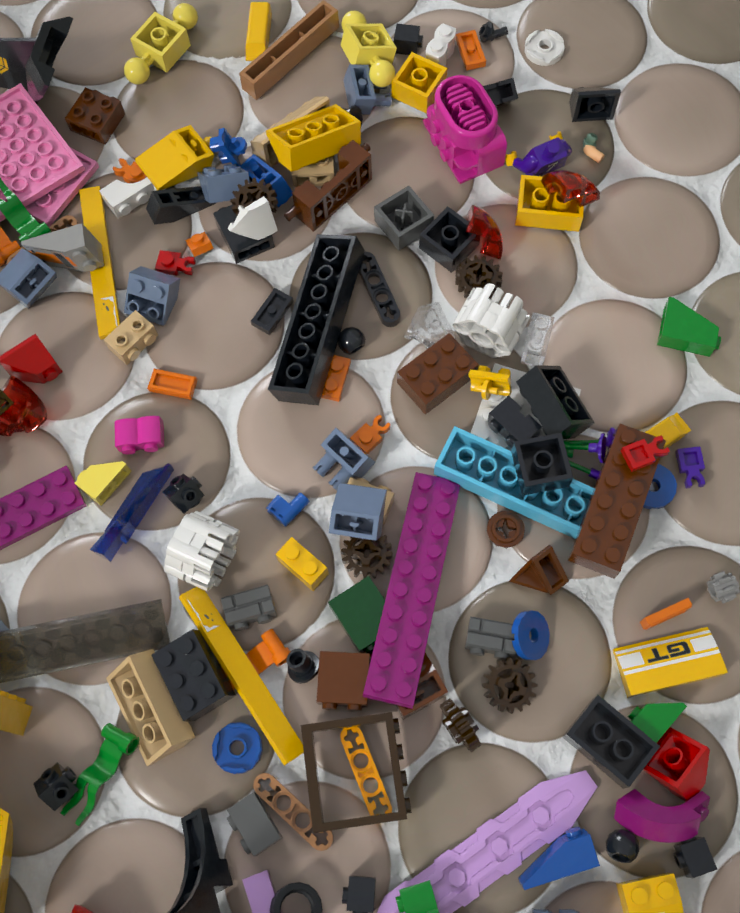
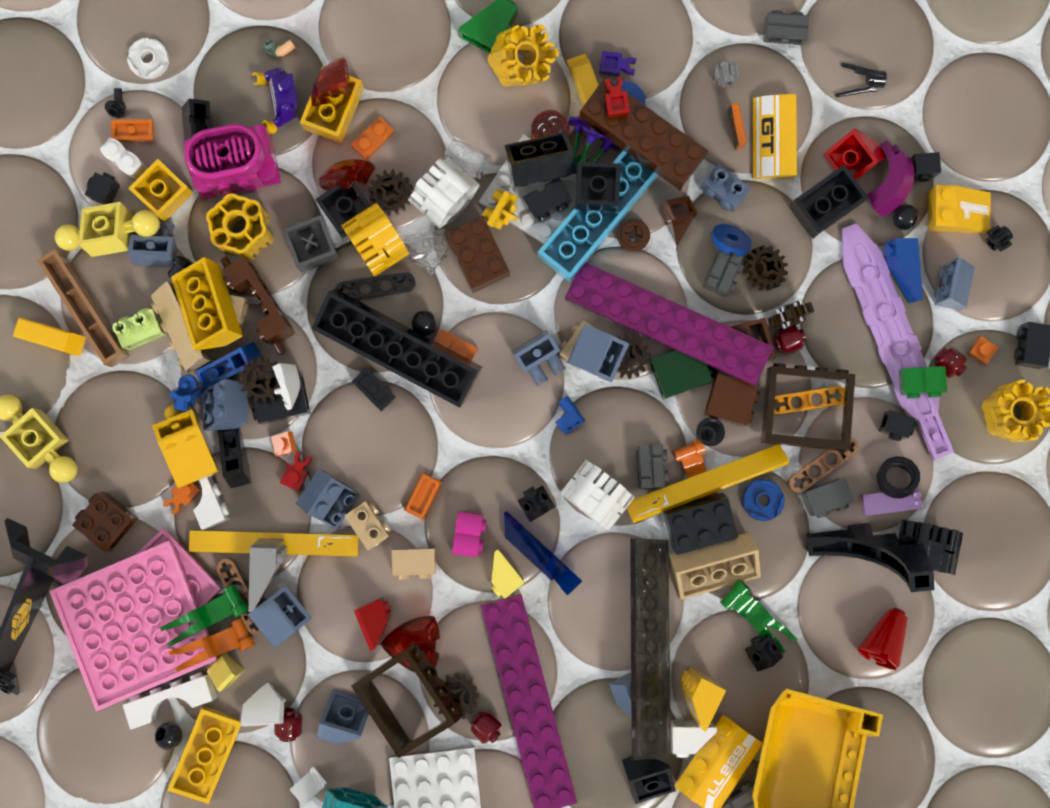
camera: 85 degrees left, 15 degrees up
(100, 389) = (414, 562): none -> tan brick
(280, 94) = (138, 329): none -> yellowish green brick
(302, 564) = (624, 413): yellow brick -> none
(369, 437) = (520, 331): orange plate -> none
(401, 151) = (247, 242): none -> yellow piece
(426, 271) = (375, 239): none -> yellow piece
(432, 734) = (789, 339): none -> dark red head
(530, 251) = (373, 138): none -> orange plate
(590, 616) = (725, 188): none -> sand blue brick
(593, 103) = (231, 33): black slope -> none
(602, 412) = (549, 123): none -> clear red head
(656, 718) = (817, 162): green slope -> none
(682, 361) = (536, 53): none -> yellow piece

